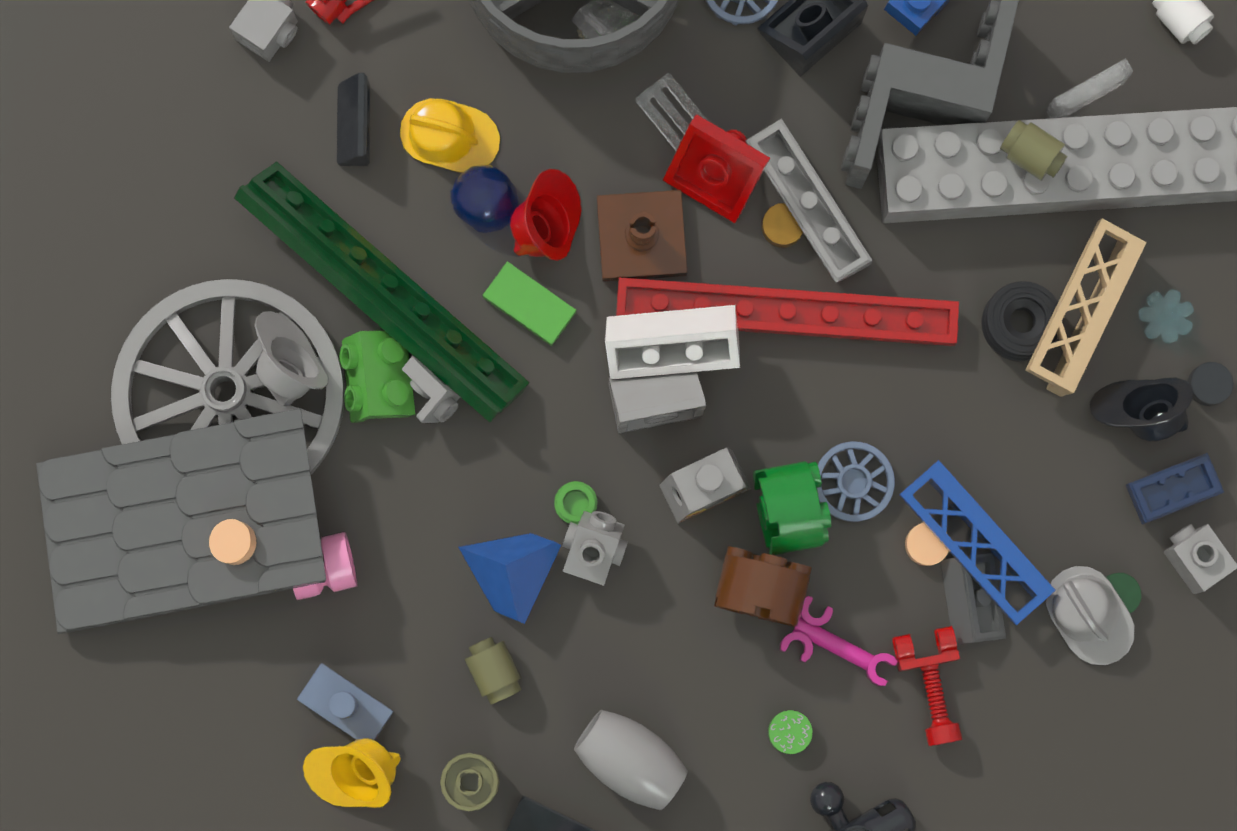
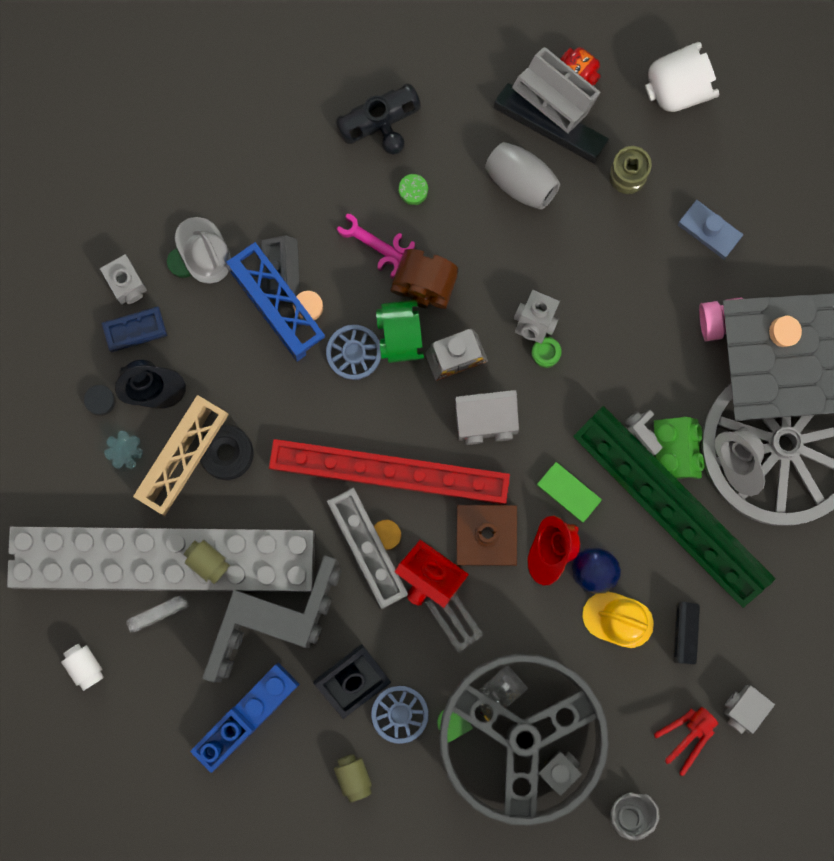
camera: 165 degrees left, 0 degrees up
(352, 773) = (706, 181): yellow piece -> none
(493, 670) = (610, 243): olive brick -> none
(511, 571) = (592, 308): blue slope -> none
(672, 342) = (473, 449): white brick -> none
(942, 728) = (311, 181): red bar -> none

